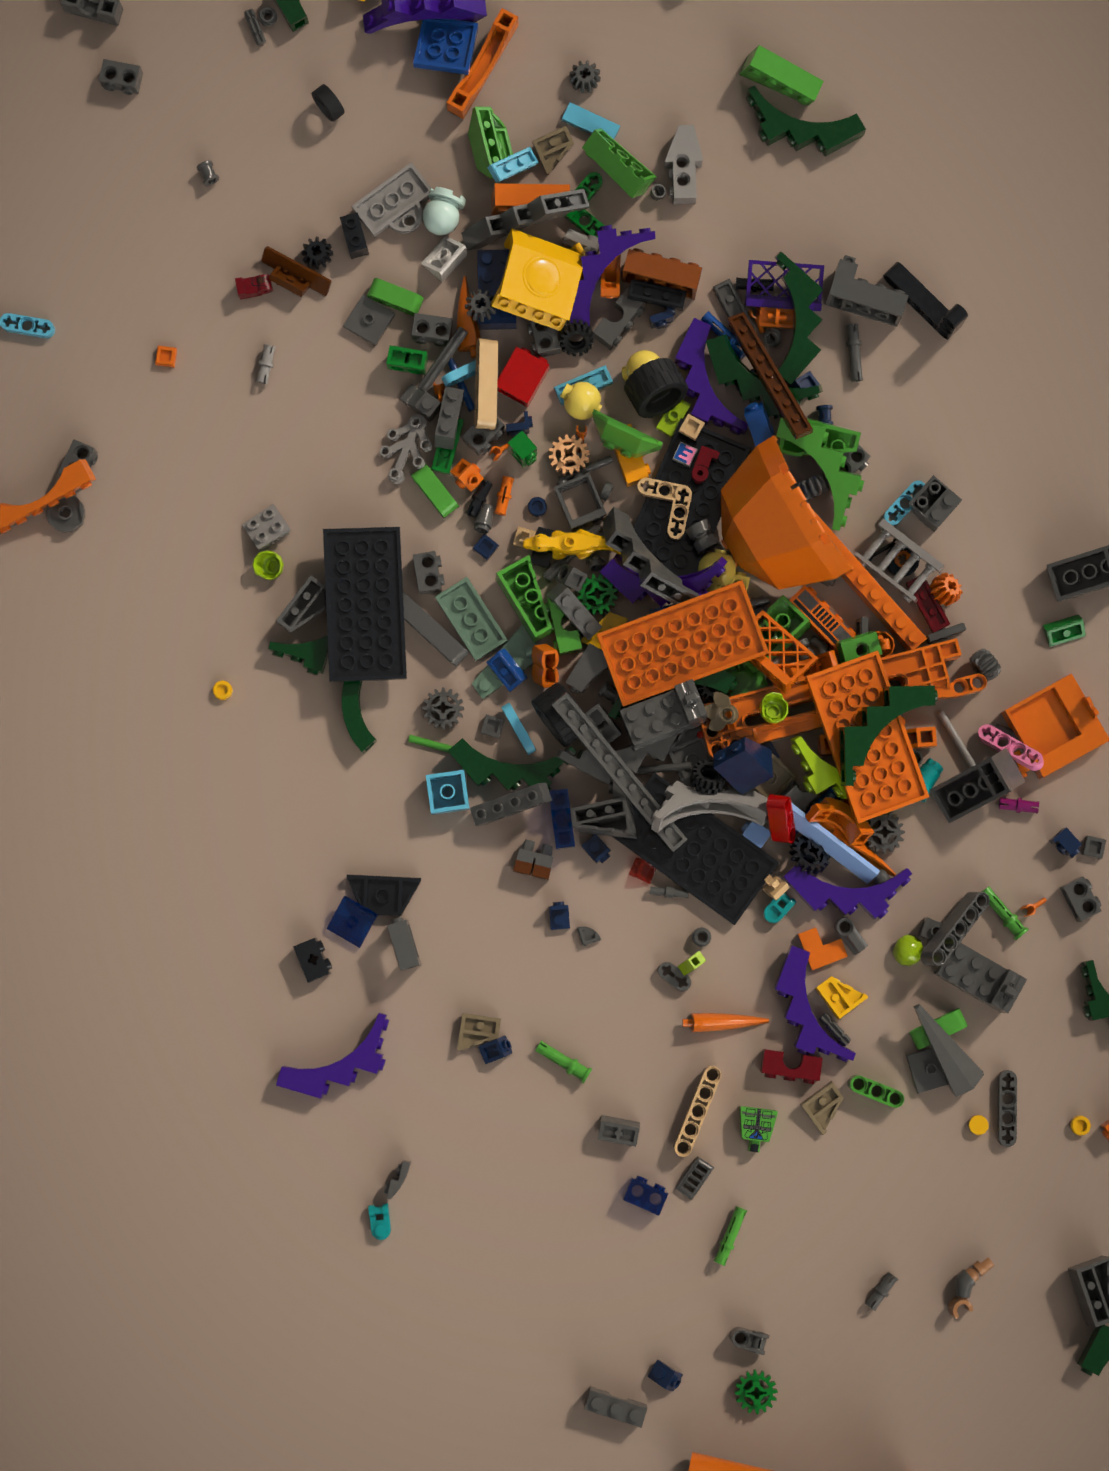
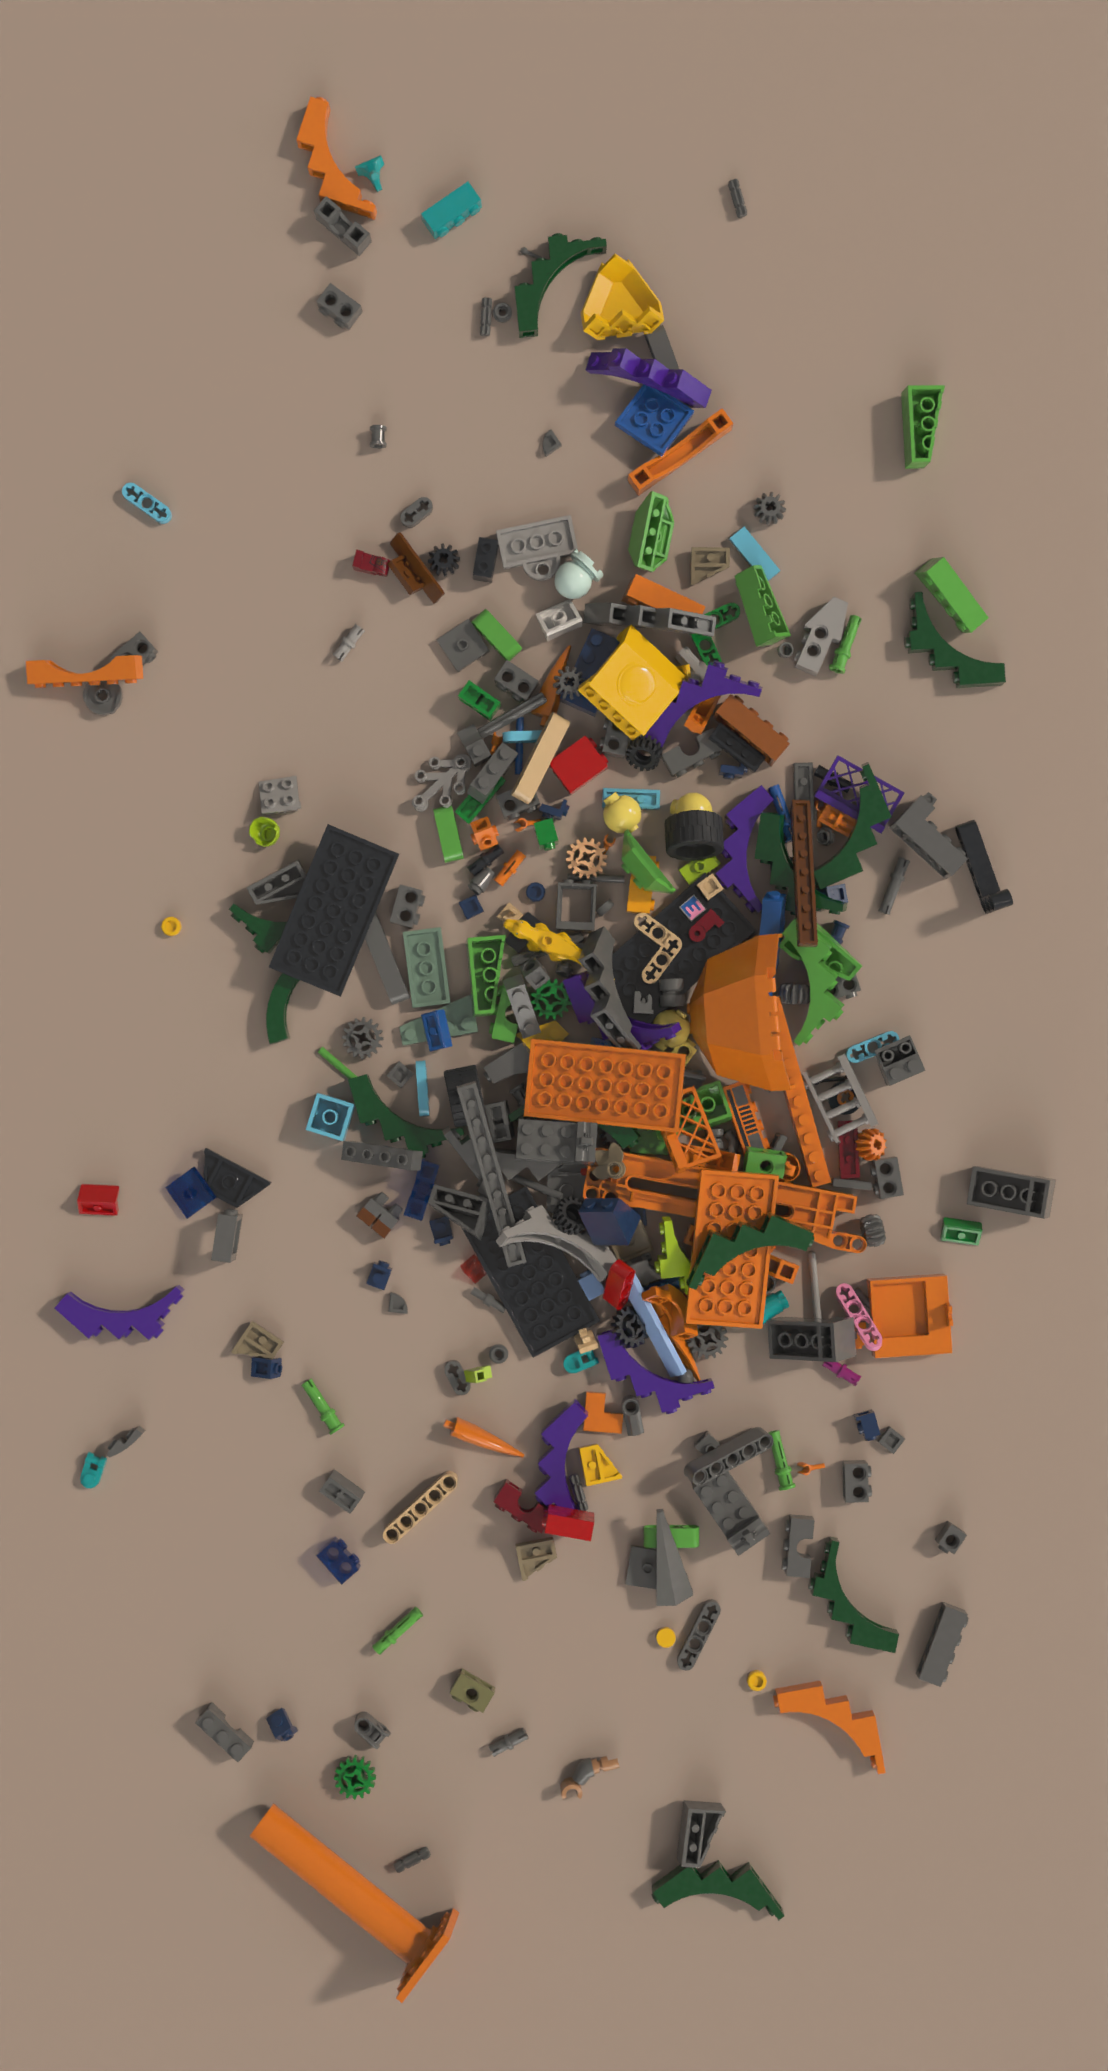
camera: 25 degrees right, 5 degrees up
(166, 356) = (261, 592): orange tile -> none
(269, 220) = (413, 508): none -> dark grey beam
(270, 968) = (98, 1199): none -> red panel
(311, 971) = (134, 1219): black brick -> none
(328, 102) = (519, 422): black tyre -> none
(364, 109) = (550, 443): none -> dark grey tile
(513, 165) = (662, 562): medium azure tile -> none
(545, 665) = (472, 1043): orange brick -> none
(681, 560) = (641, 1007): none -> dark grey hinge
(704, 1164) = (404, 1557): dark grey slope -> none
(710, 171) = (843, 653): none -> bright green pin
(756, 1125) = (467, 1545): torso -> none
(773, 708) = (659, 1183): lime hair -> none
(814, 1253) = (466, 1681): none -> olive brick
(839, 1056) = (568, 1522): none -> red brick
(845, 1444) = (412, 1859): none -> dark grey axle
(884, 1096) = (591, 1574): bright green beam -> none
(907, 950) = (678, 1453): lime hair -> none
(979, 609) = (892, 1176): none -> dark grey brick
(1049, 967) = (798, 1528): none -> dark grey arch

